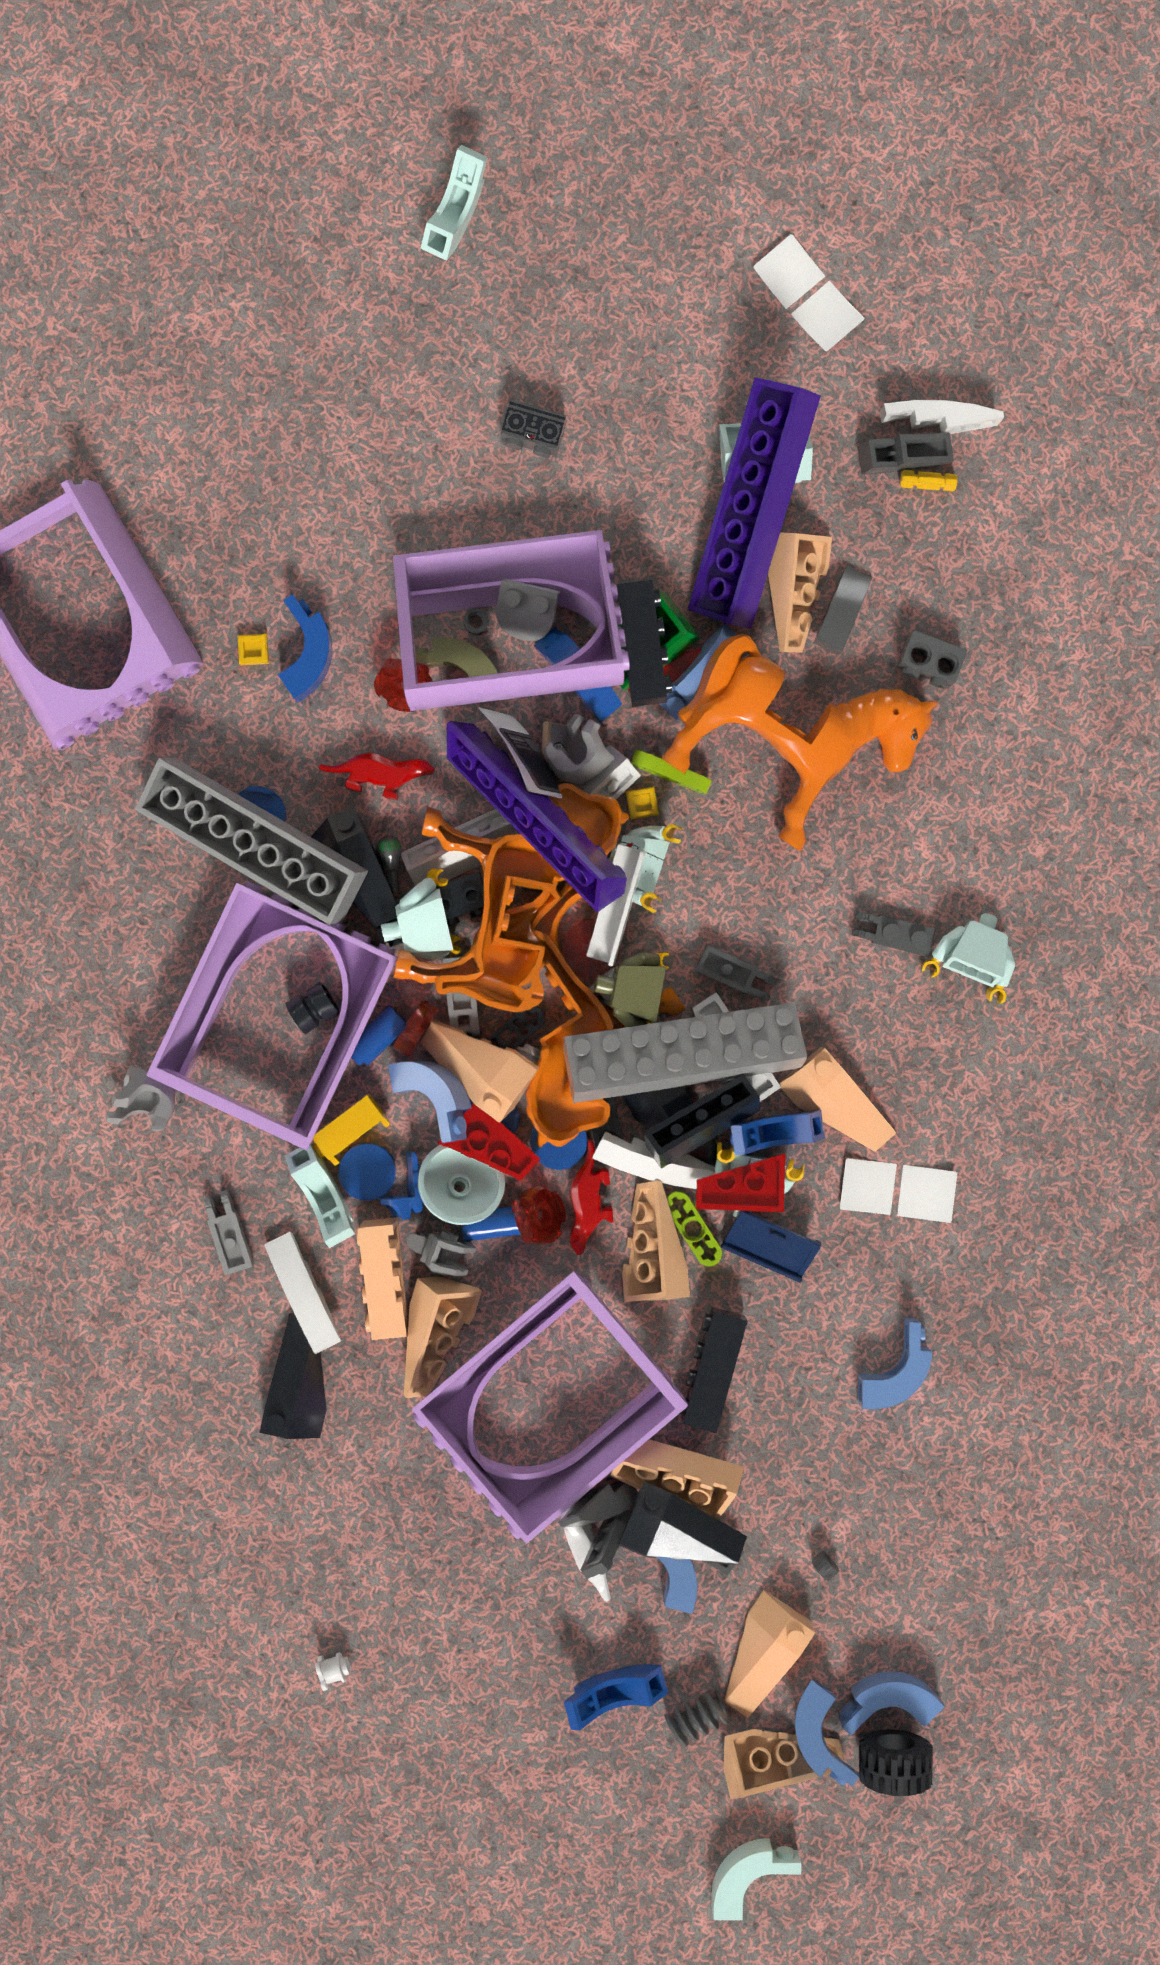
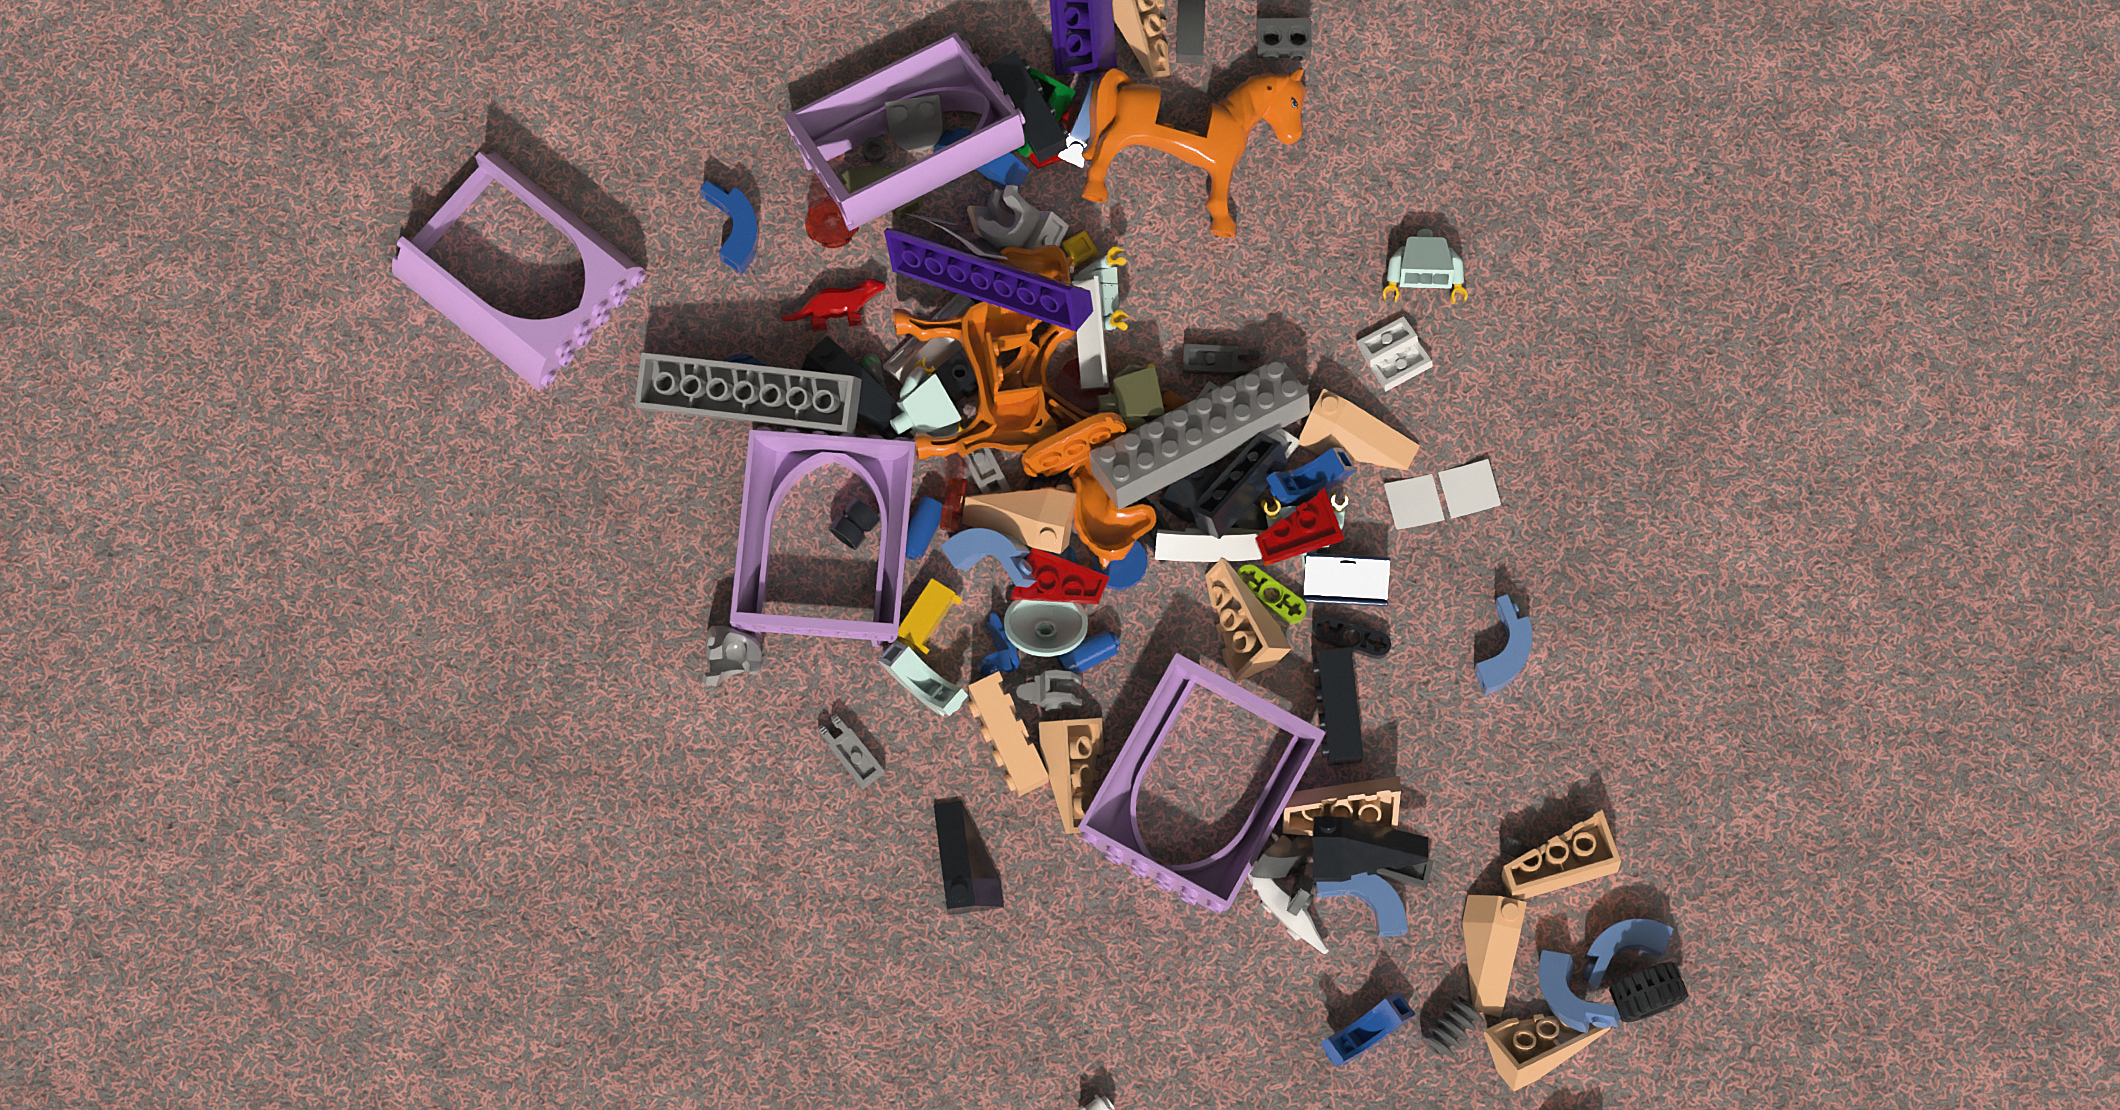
camera: 20 degrees left, 15 degrees down
(253, 649) = (686, 243): yellow tile -> none
(303, 1292) = (939, 777): white slope -> none
(367, 1171) = (956, 651): blue tile -> none
(526, 1215) = (1127, 627): clear red plate -> none
(554, 1020) = (1072, 444): none -> orange tile
(587, 1201) = (1166, 603): red animal -> none
(666, 771) = (1095, 212): lime beam -> none
(765, 1319) = (1346, 626): none -> black beam
(868, 1600) = (1565, 860): none -> light nougat wedge
(897, 934) = (1348, 277): dark grey hinge -> none
(909, 1030) = (1394, 353): none -> white slope

